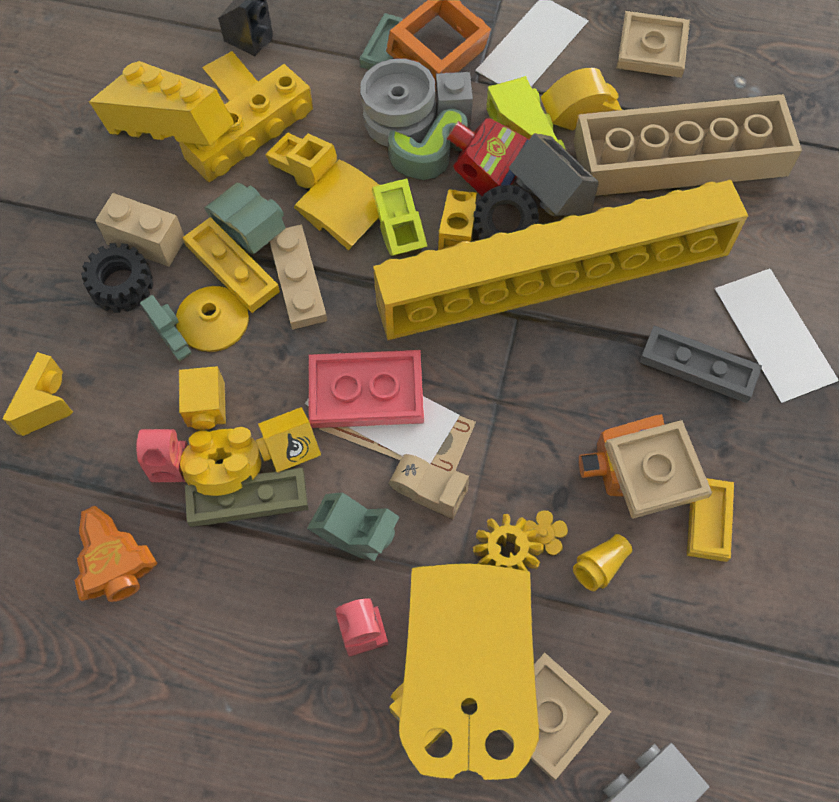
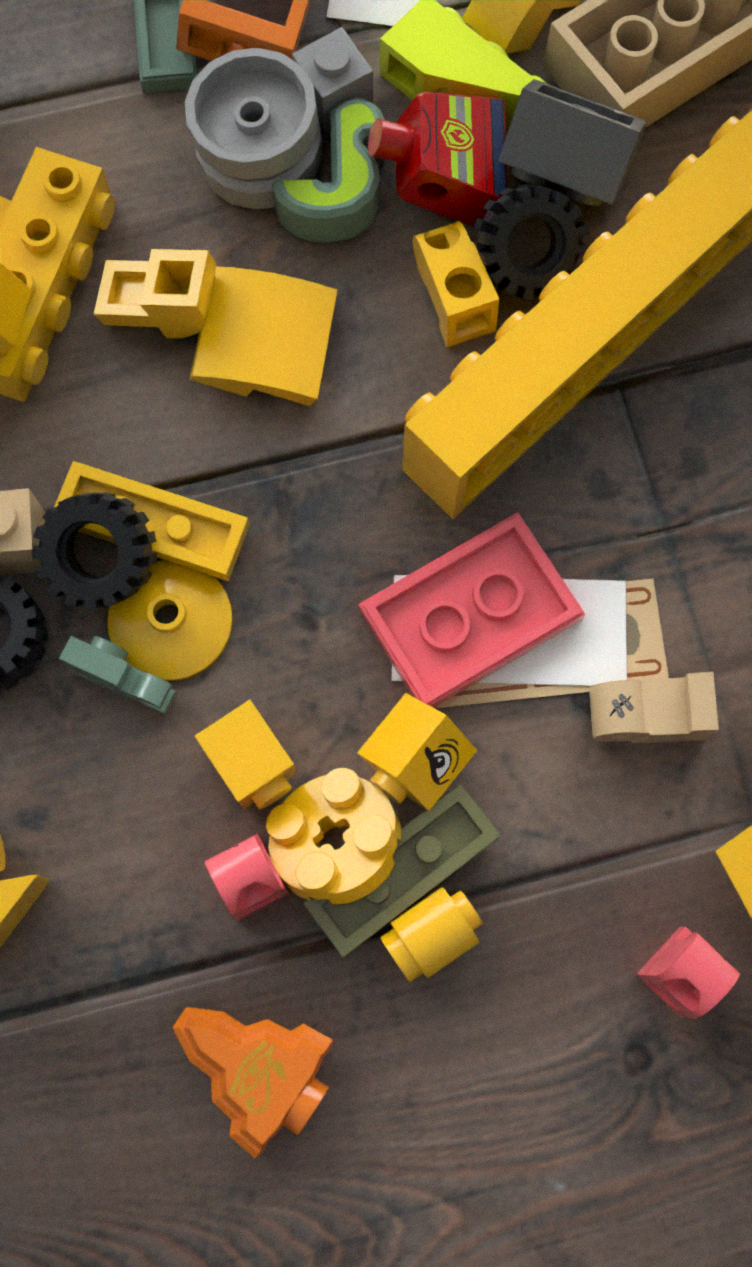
camera: 30 degrees left, 10 degrees up
(173, 257) = (59, 560): none -> black tyre
(240, 536) = (432, 934): none -> yellow brick
(247, 216) = (132, 432): sand green brick -> none
(297, 278) = (260, 487): tan plate -> none
(353, 526) = (592, 831): sand green brick -> none
(398, 218) = (372, 328): neon yellow brick -> none

